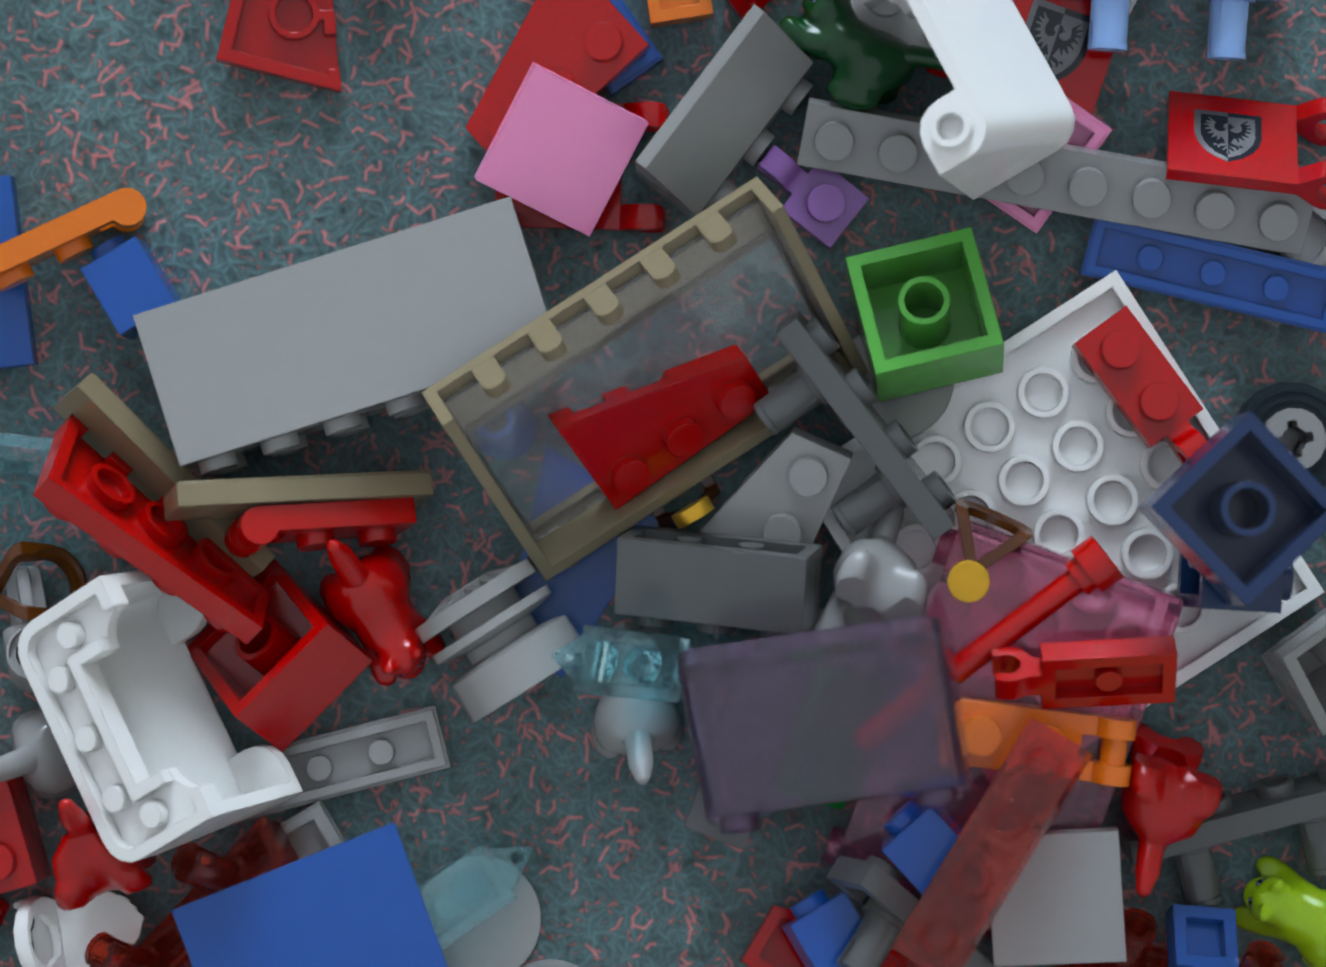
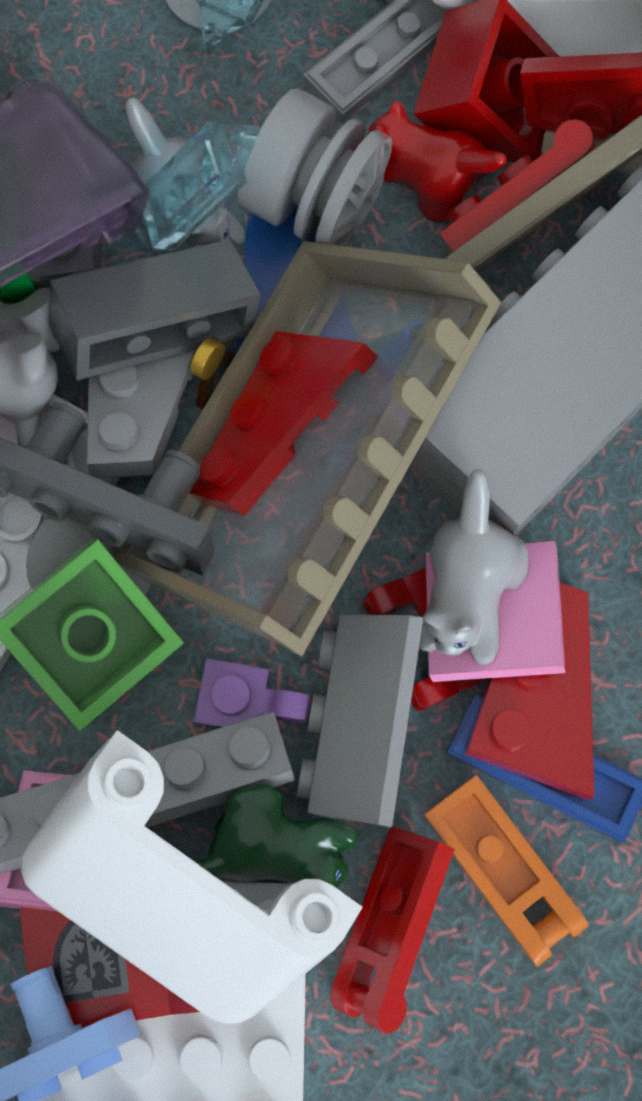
camera: 155 degrees right, 10 degrees down
(566, 187) = (471, 569): none -> light grey animal

